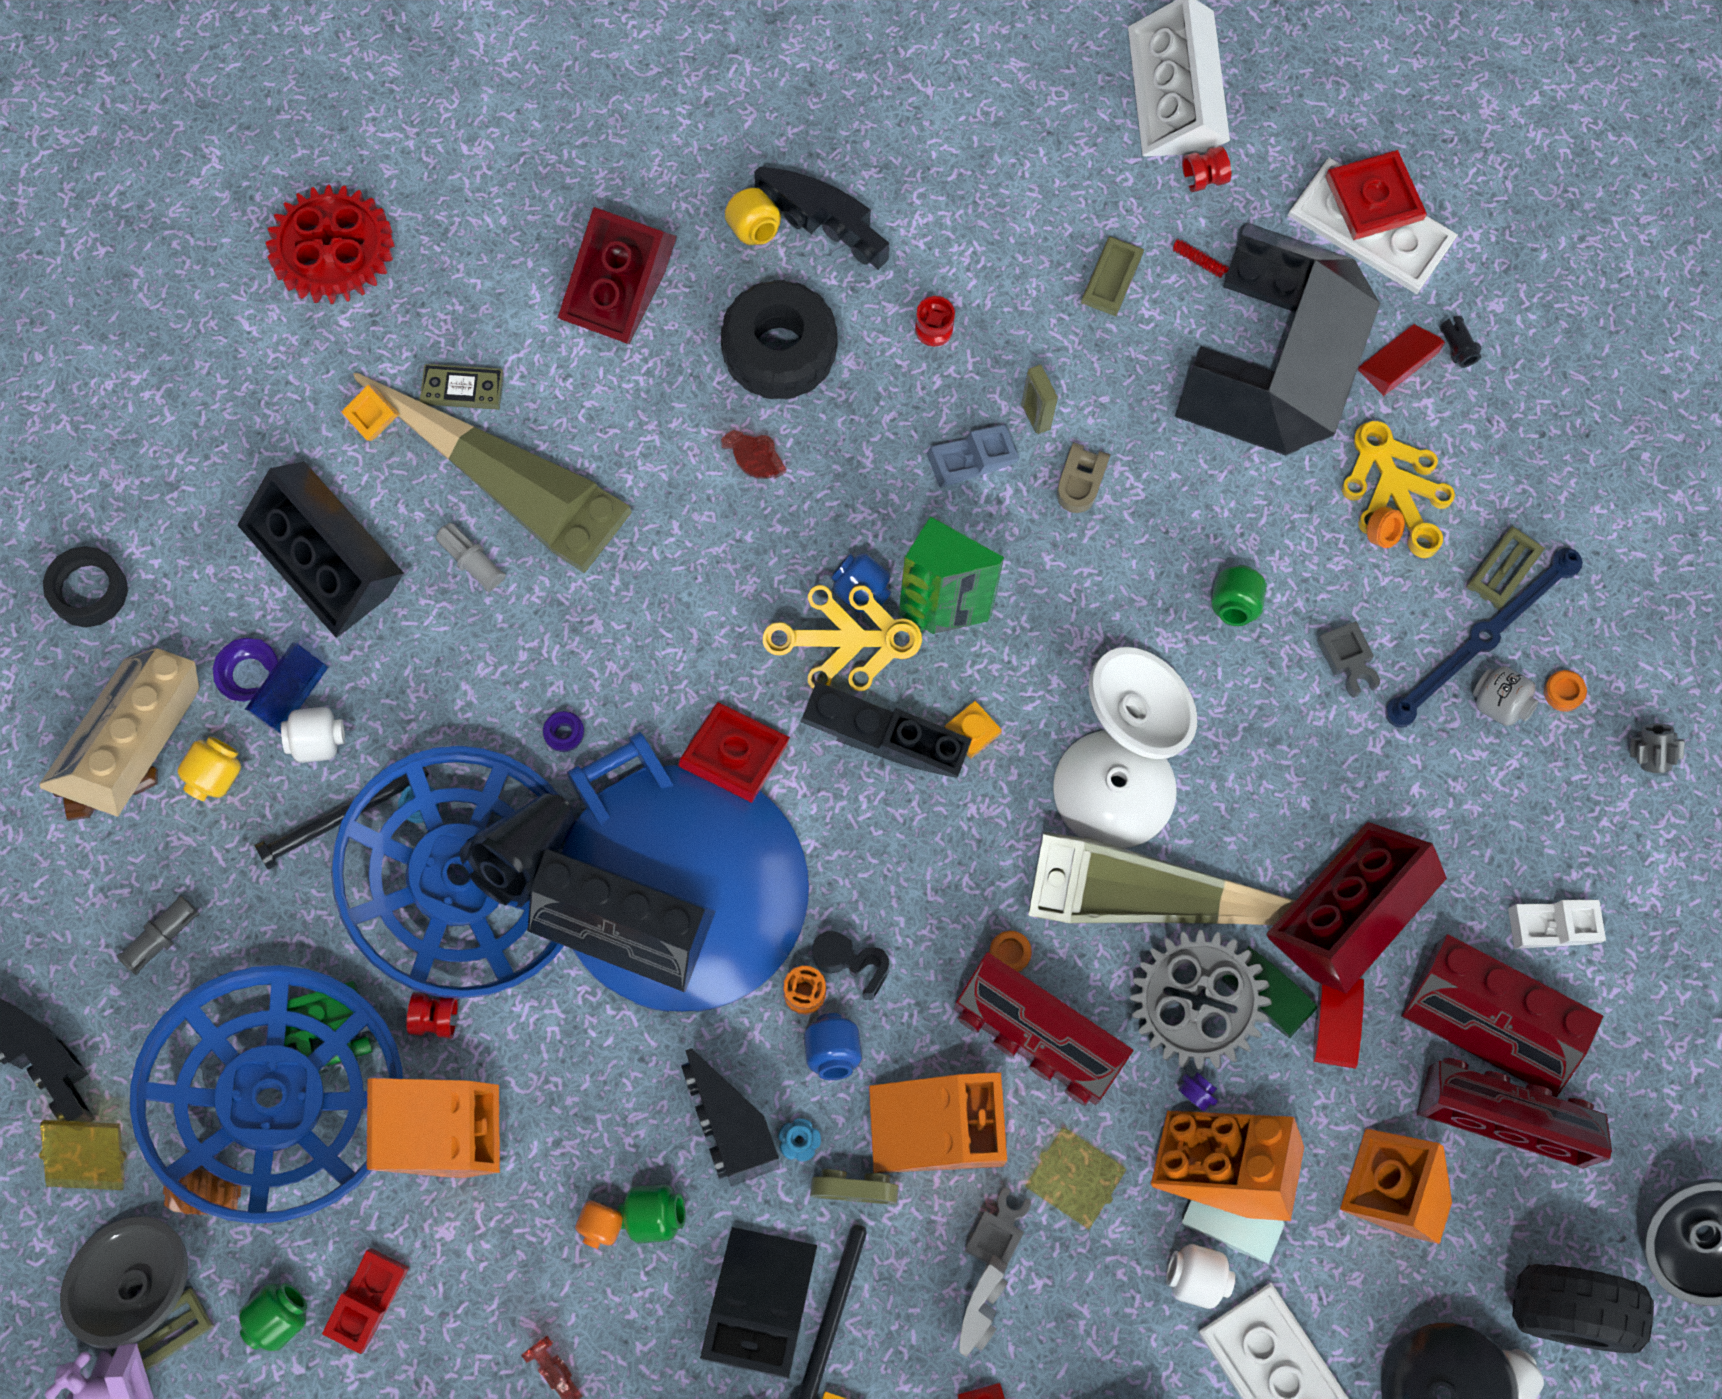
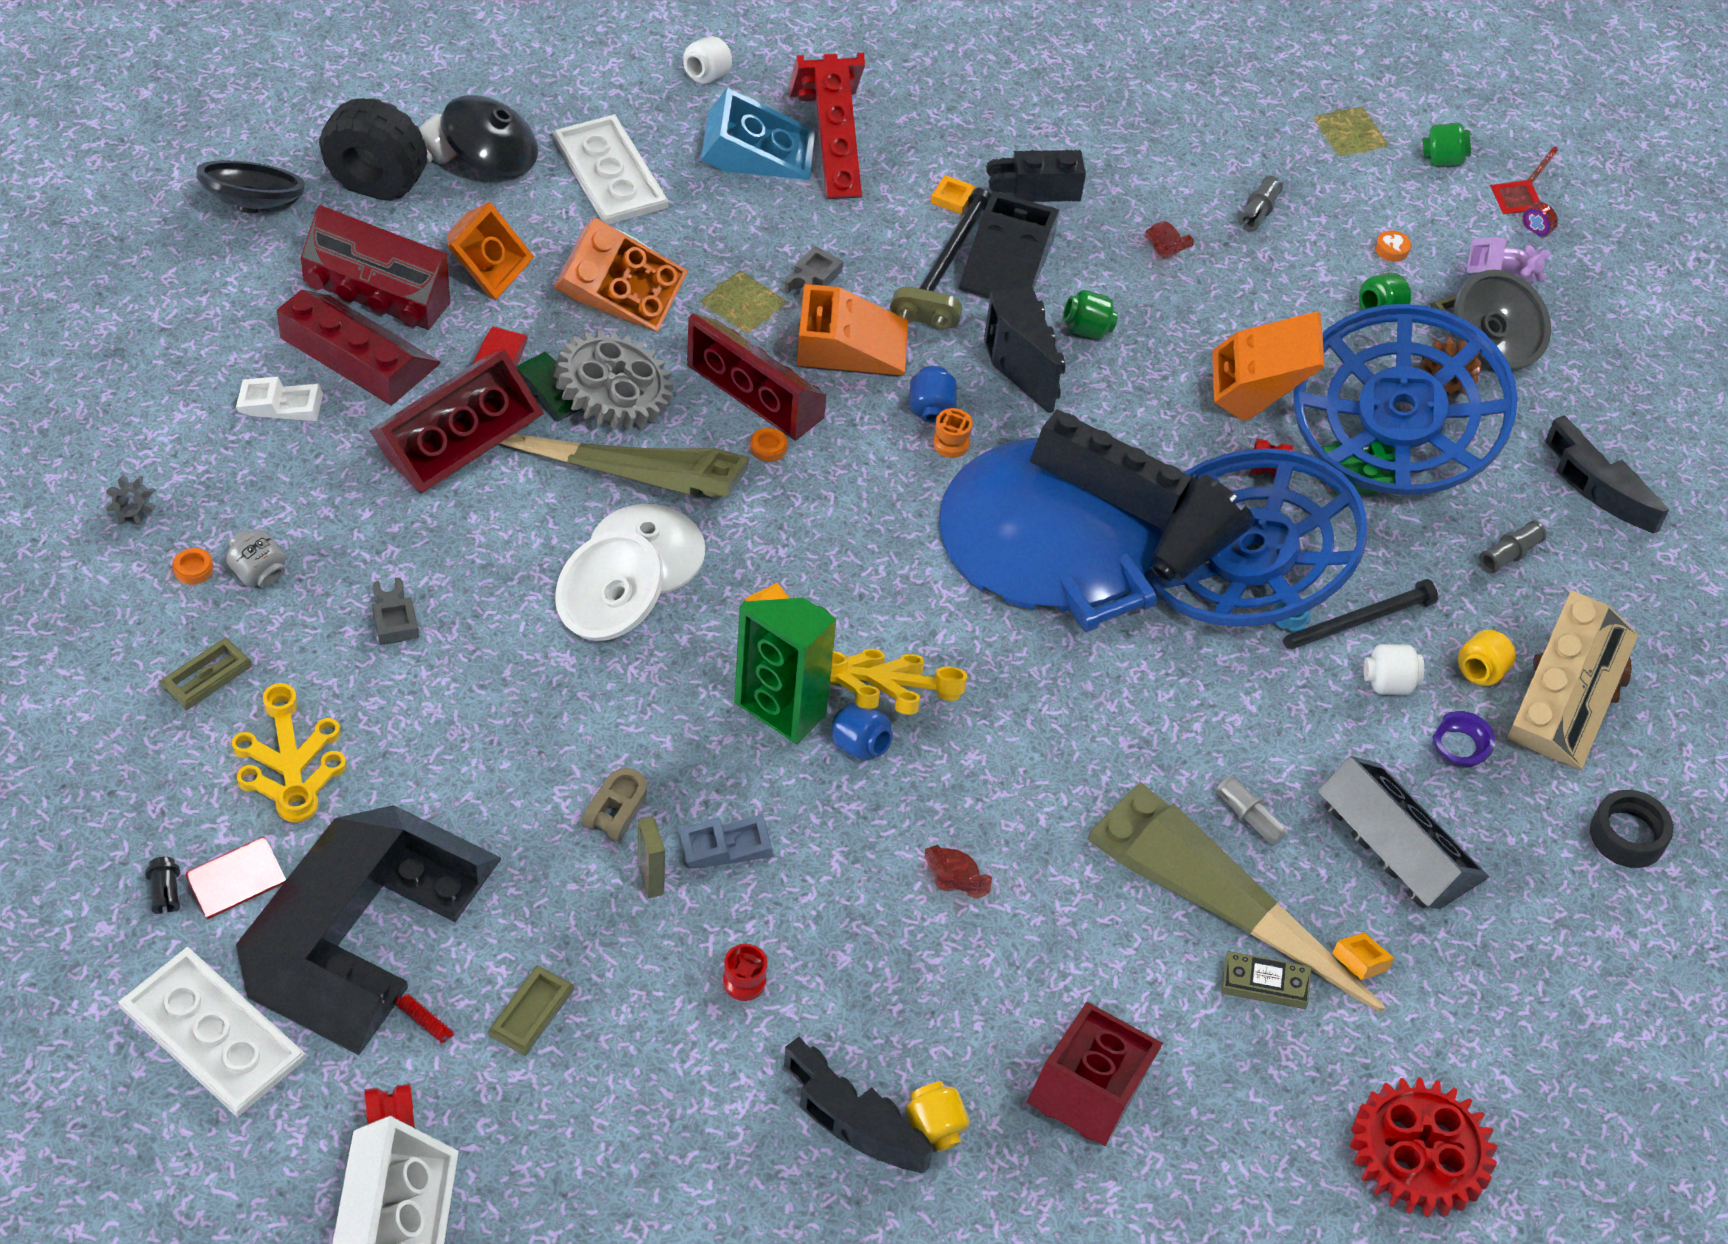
camera: 175 degrees left, 20 degrees down
(82, 1154) = (1551, 406): clear yellow piece -> none
(286, 687) = (1422, 715): clear blue plate -> none
(365, 1301) = (1316, 294): red slope -> none
(558, 720) = (1161, 644): dark purple plate -> none
(598, 1224) = (1132, 316): orange piece -> none
(734, 752) = (999, 609): red plate -> none
(779, 372) = (916, 1001): black tyre -> none
(802, 1151) = (966, 348): dark azure plate -> none
(835, 952) = (922, 450): black leg -> none
(886, 733) = (856, 608): black slope -> none
(978, 1317) = (836, 225): light grey slope -> none
(1198, 1091) = (631, 325): dark purple plate -> none
(1200, 1276) = (661, 222): white head -> none
(1238, 595) = (487, 672): green head -> none
(1375, 195) = (202, 1041): red plate -> none
(1385, 527) = (317, 713): orange tile -> none
(1403, 711) = (144, 669): dark blue piece -> none

